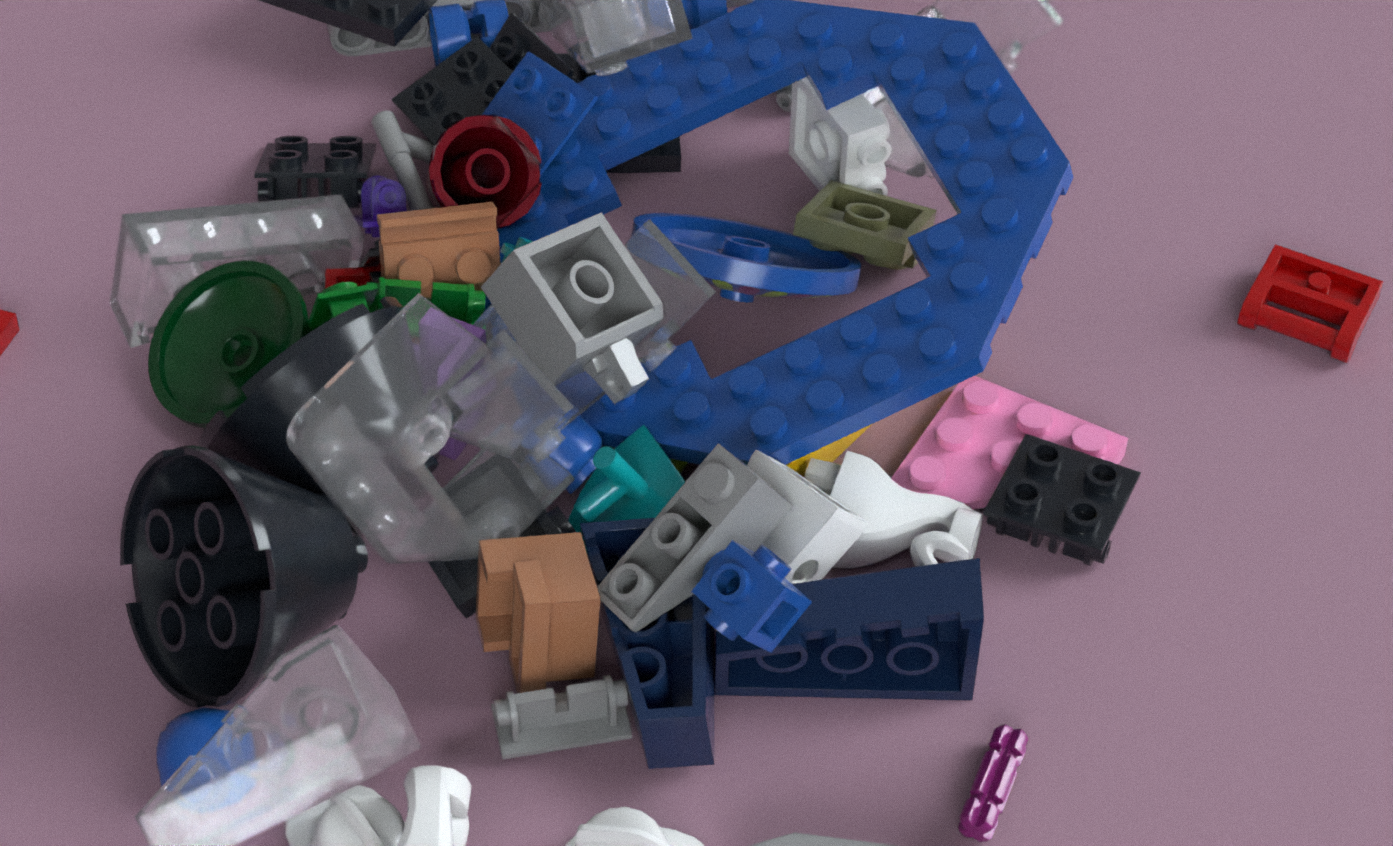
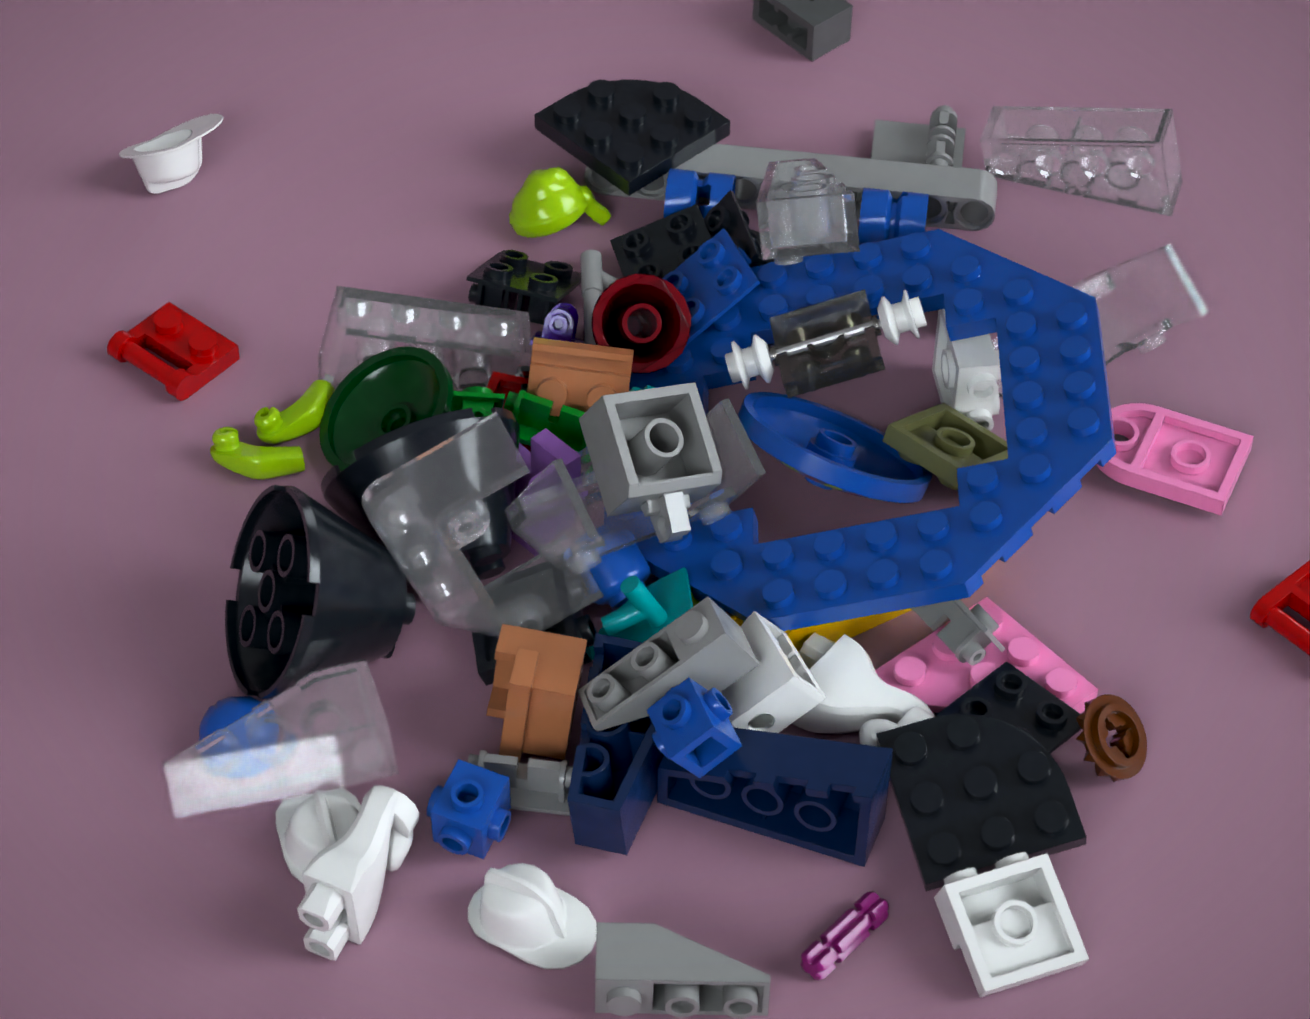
camera: 20 degrees right, 0 degrees up
(90, 437) = (253, 460): none -> lime arm
(120, 377) = (296, 420): none -> lime arm
(309, 76) = (551, 203): none -> lime hat
(522, 765) = (470, 810): none -> blue brick
(701, 141) = (826, 342): none -> clear smoke plate
(973, 411) = (966, 632): none -> light grey hinge
(1072, 587) = (977, 794): none -> black plate
(1111, 180) = (1177, 456): none -> bright pink plate
(1166, 714) = (1010, 922): none -> white plate
(1172, 484) = (1129, 743): none -> reddish brown gear

